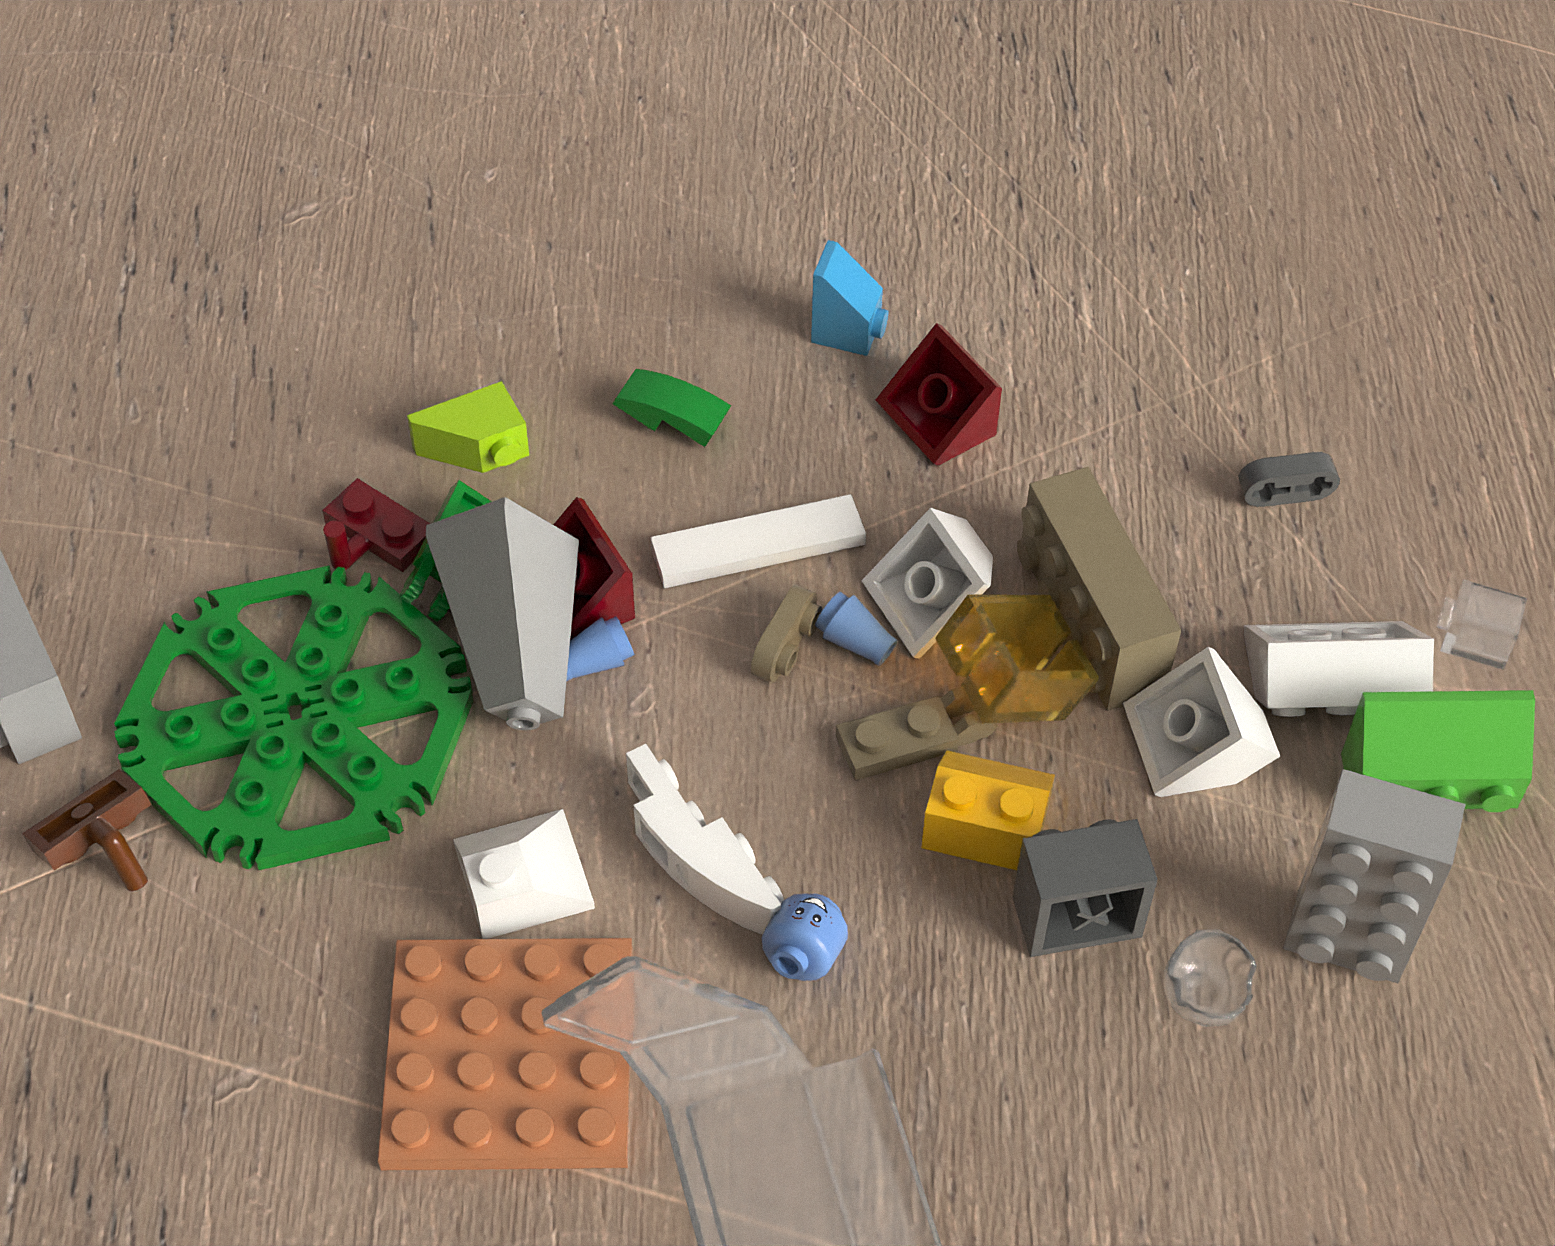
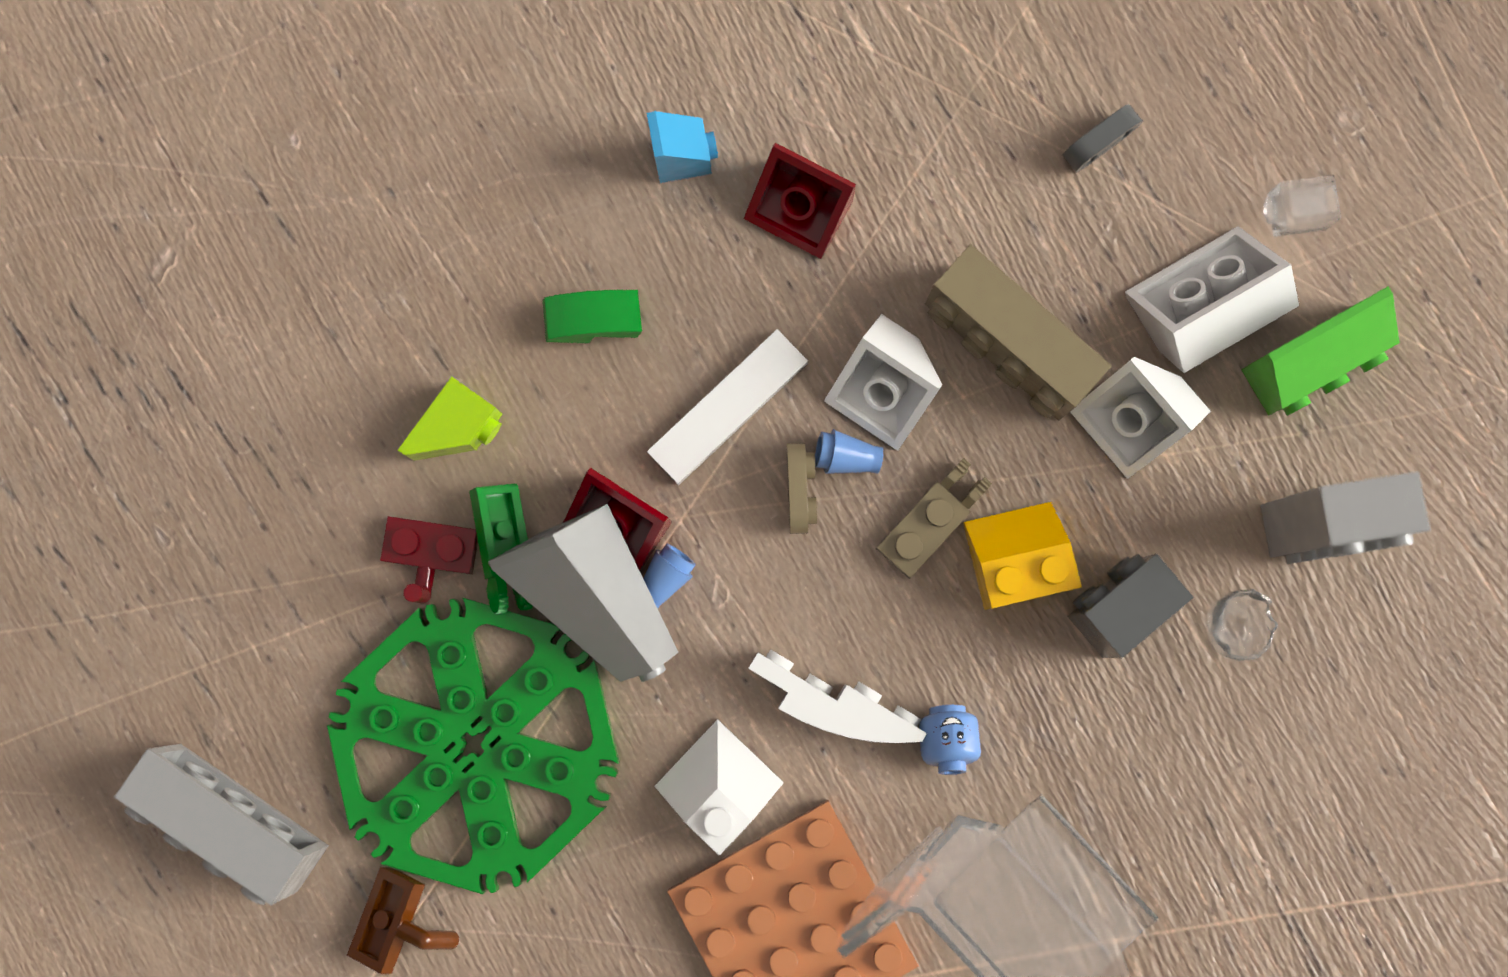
camera: 25 degrees left, 30 degrees up
(1001, 651) = (979, 444): clear yellow piece -> none

